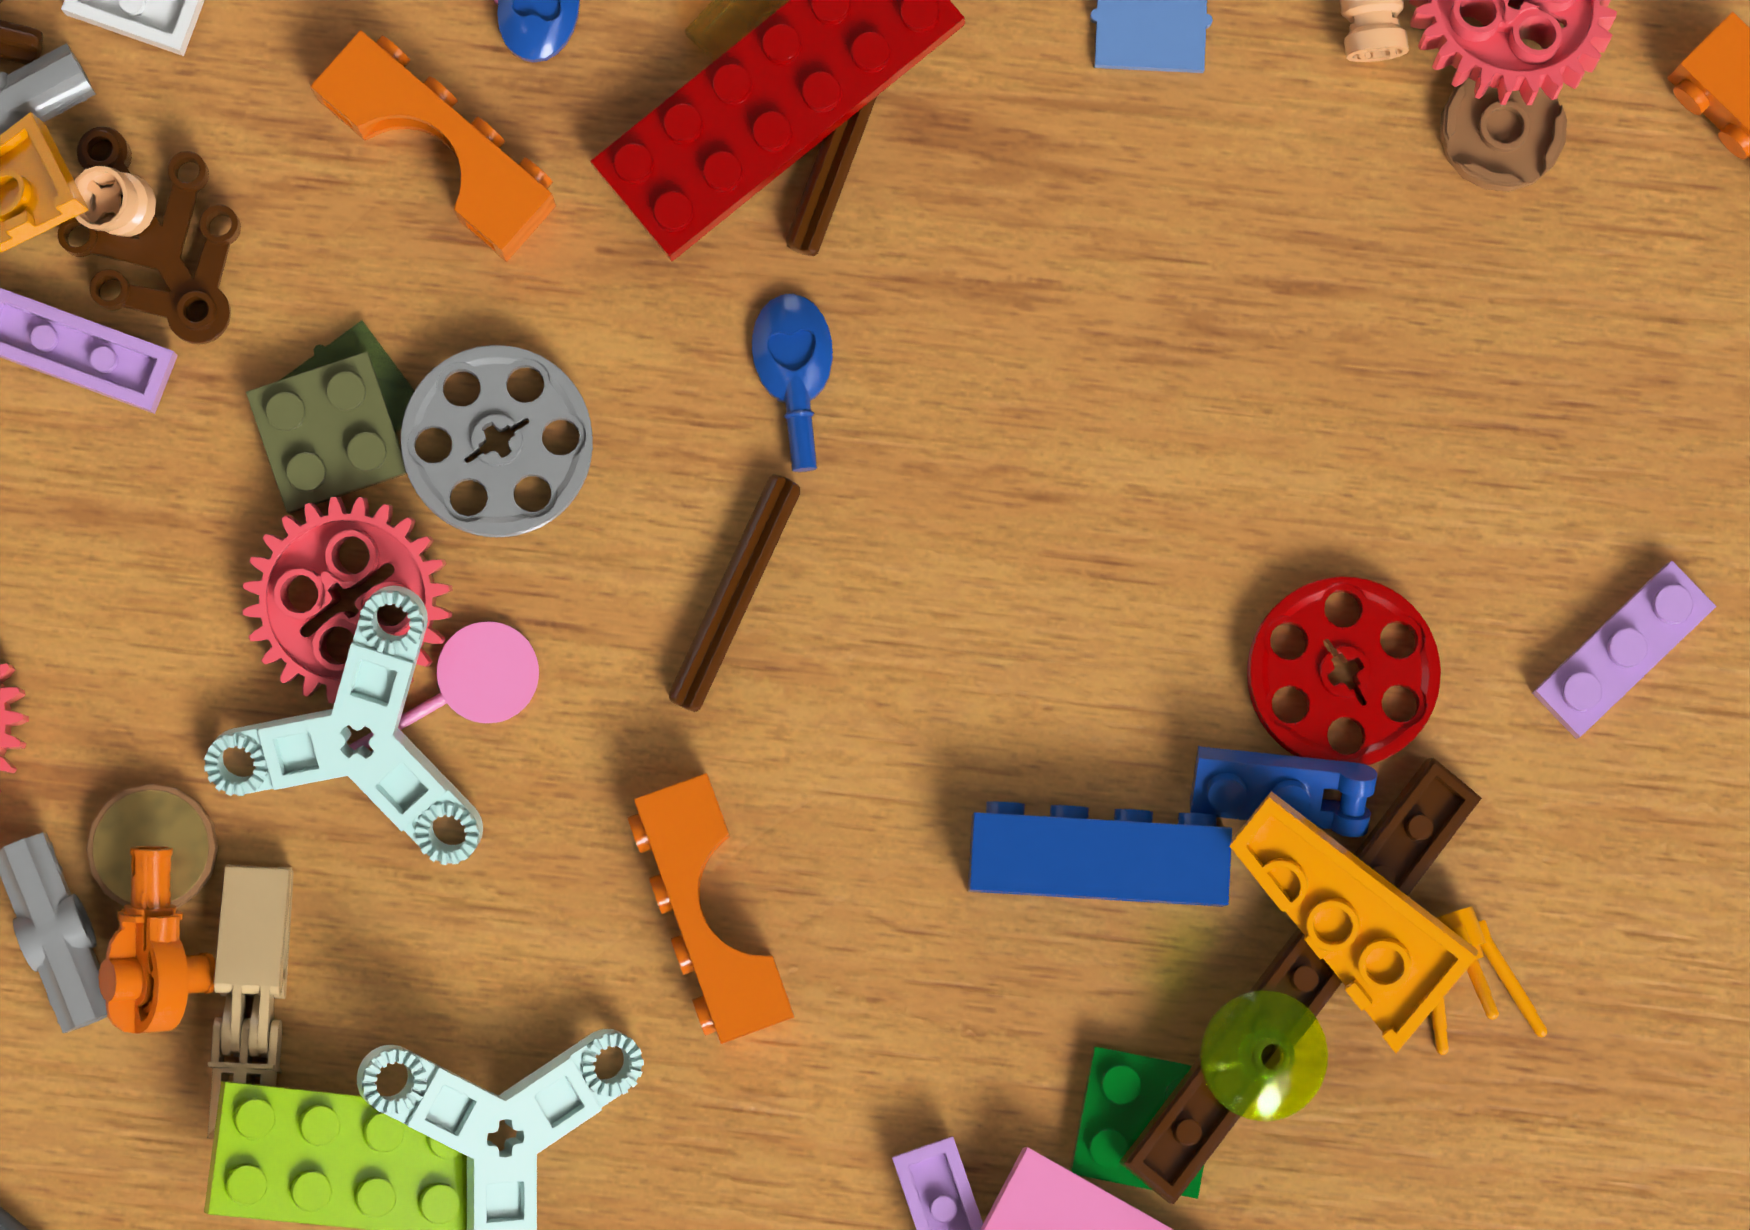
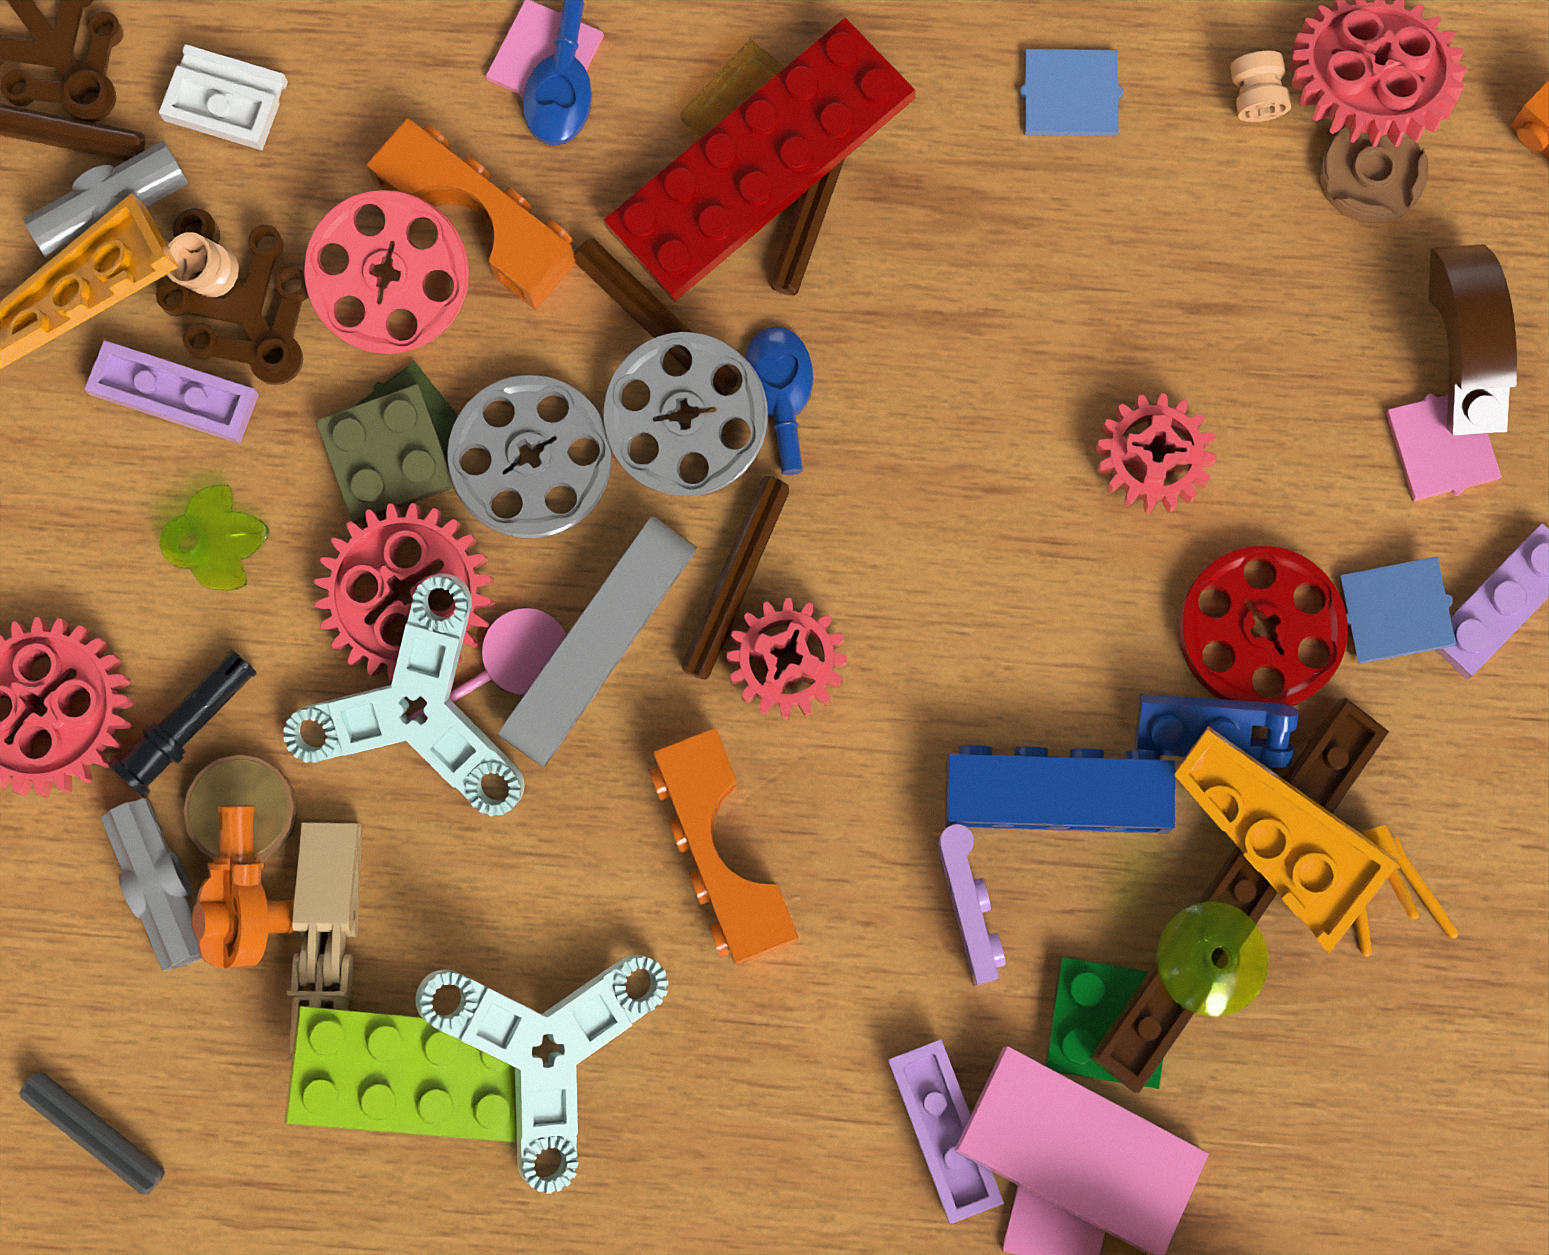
camera: 10 degrees right, 5 degrees down
(66, 766) = (164, 741): none -> black pin
(132, 524) = (221, 535): none -> clear neon green plate
(312, 190) = (367, 251): none -> coral wedge
(572, 665) = (597, 641): none -> light grey beam
(648, 279) = (642, 305): none -> reddish brown axle
(697, 370) = (666, 396): none -> light grey wedge
(765, 679) = (764, 647): none -> coral gear
(991, 980) = (969, 901): none -> lavender plate
(1257, 466) = (1134, 453): none -> coral gear
(1500, 657) = (1398, 610): none -> medium blue piece
(1565, 461) = (1435, 458): none -> bright pink piece
(1610, 337) = (1480, 333): none -> reddish brown arch

